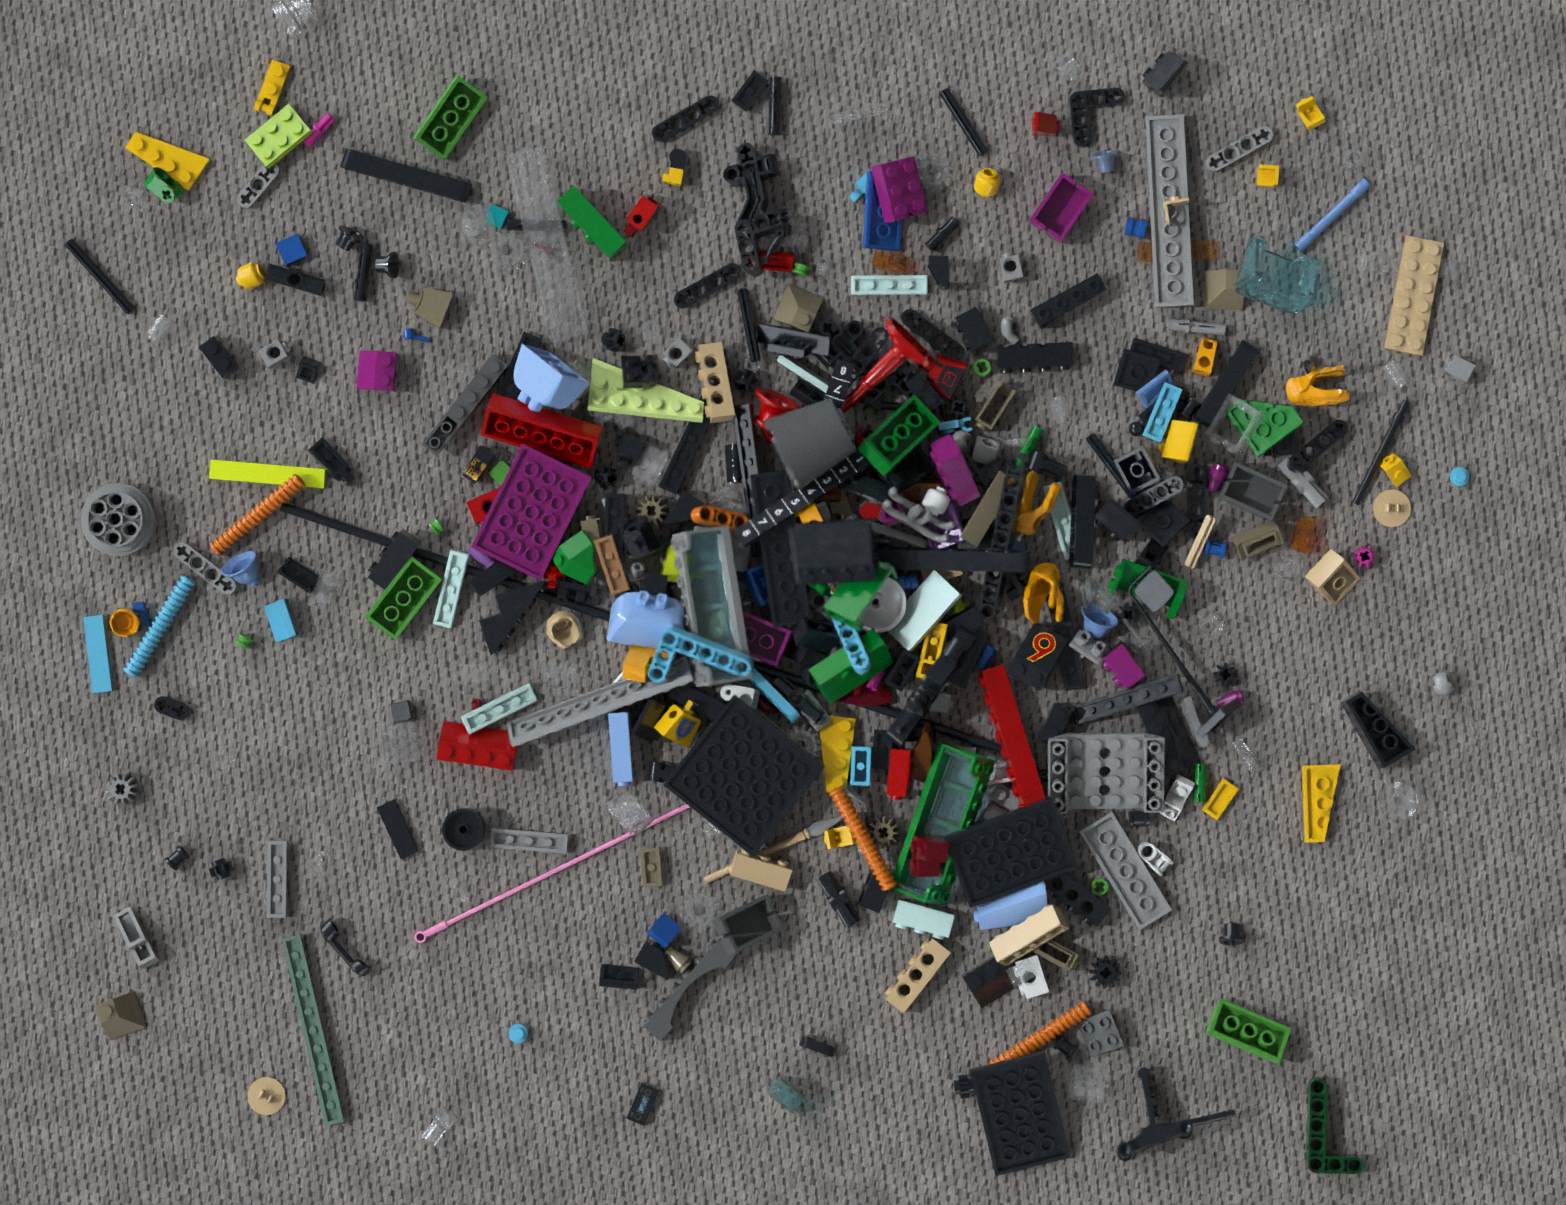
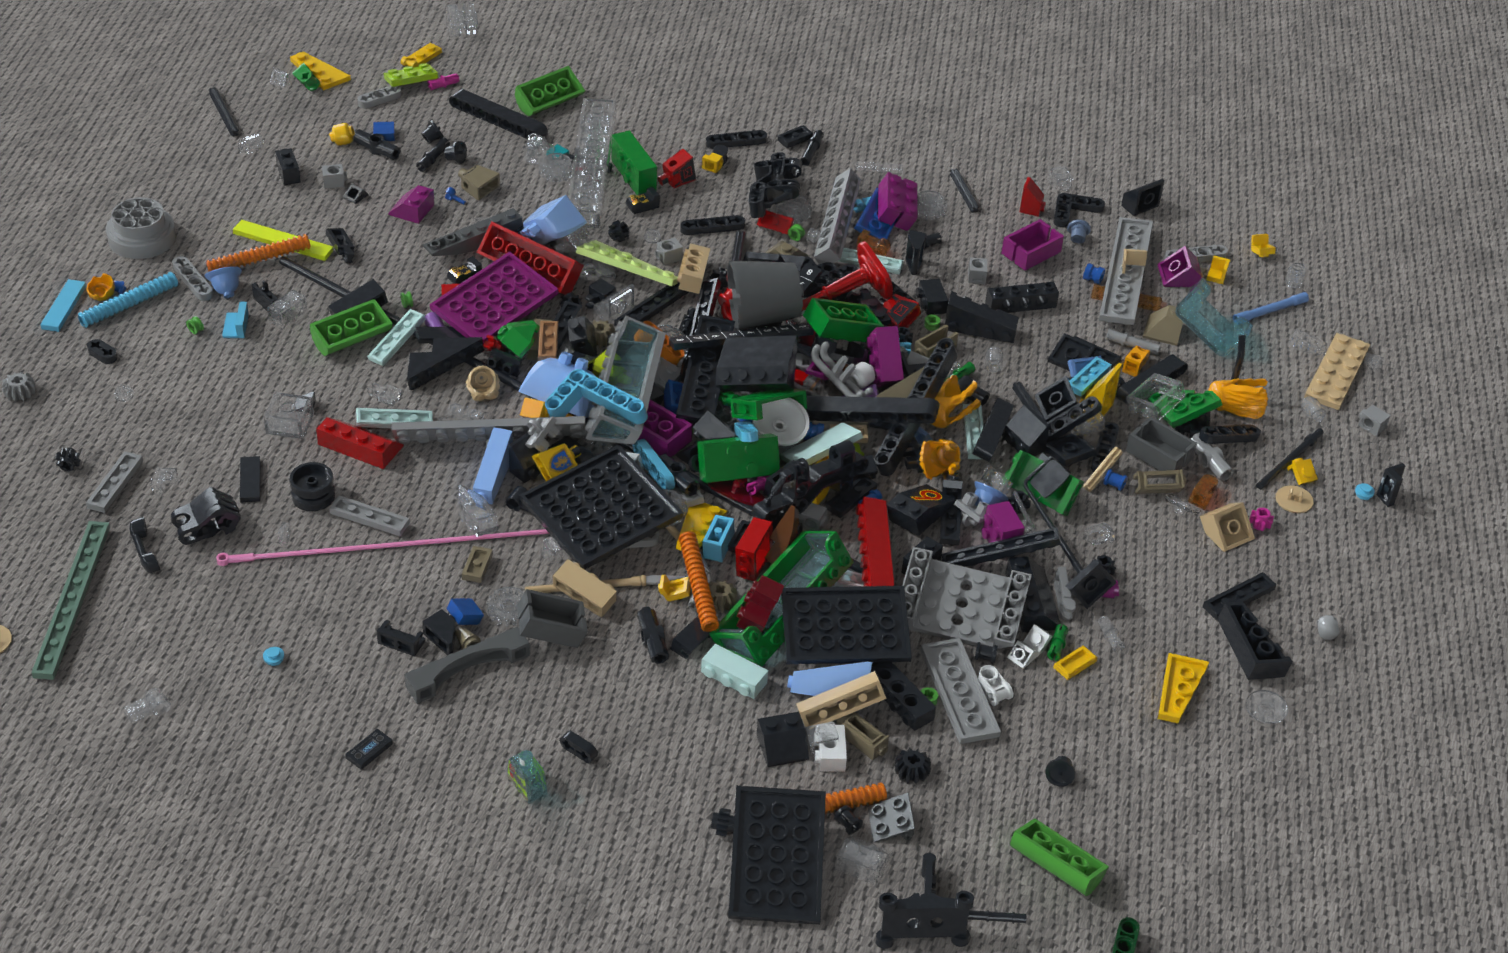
camera: 15 degrees right, 45 degrees down
(177, 858) = (39, 443): black bush -> none
(386, 897) = (199, 513): none -> black piece
(620, 276) = (644, 201): none -> black leg
(632, 371) = (627, 246): black plate -> none
(657, 709) = (538, 430): none -> light grey hips
(840, 234) = (837, 217): none -> light grey brick
(902, 1001) = (709, 715): tan brick -> none
(987, 182) = (973, 219): yellow head -> none
(1217, 476) = (1129, 428): magenta cone -> none
(1226, 188) = (1180, 269): none -> magenta slope
(1356, 666) = (1243, 592): none -> black plate
(1482, 474) = (1390, 484): none -> black panel

